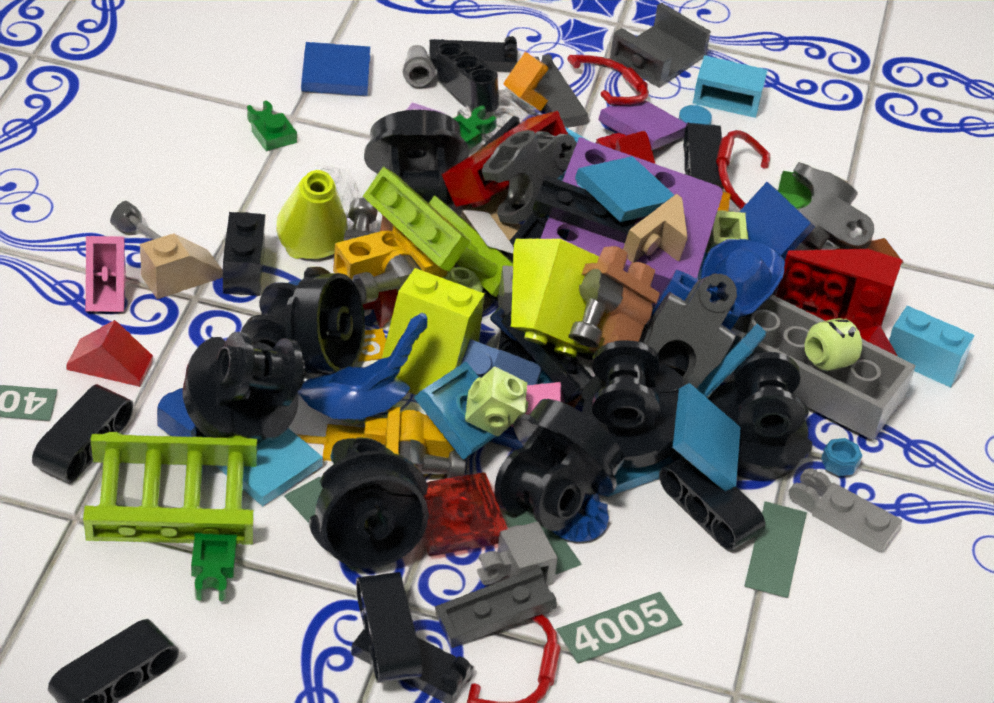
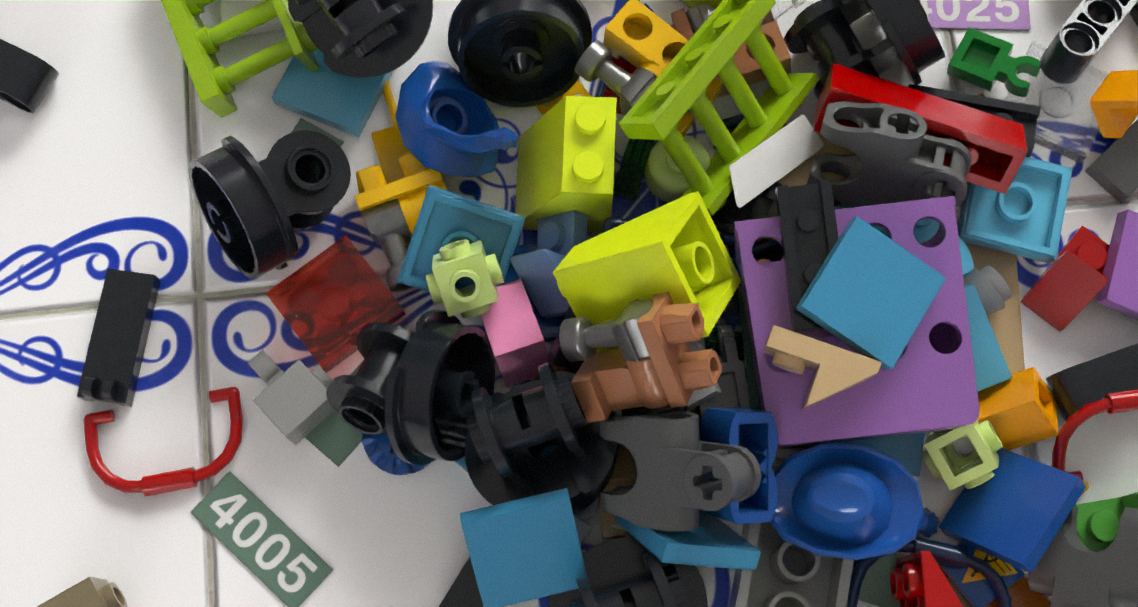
camera: 75 degrees right, 30 degrees up
(213, 562) = (164, 88): green plate -> none
(388, 627) = (119, 294): black beam -> none
(495, 607) = (216, 397): dark grey hinge -> none

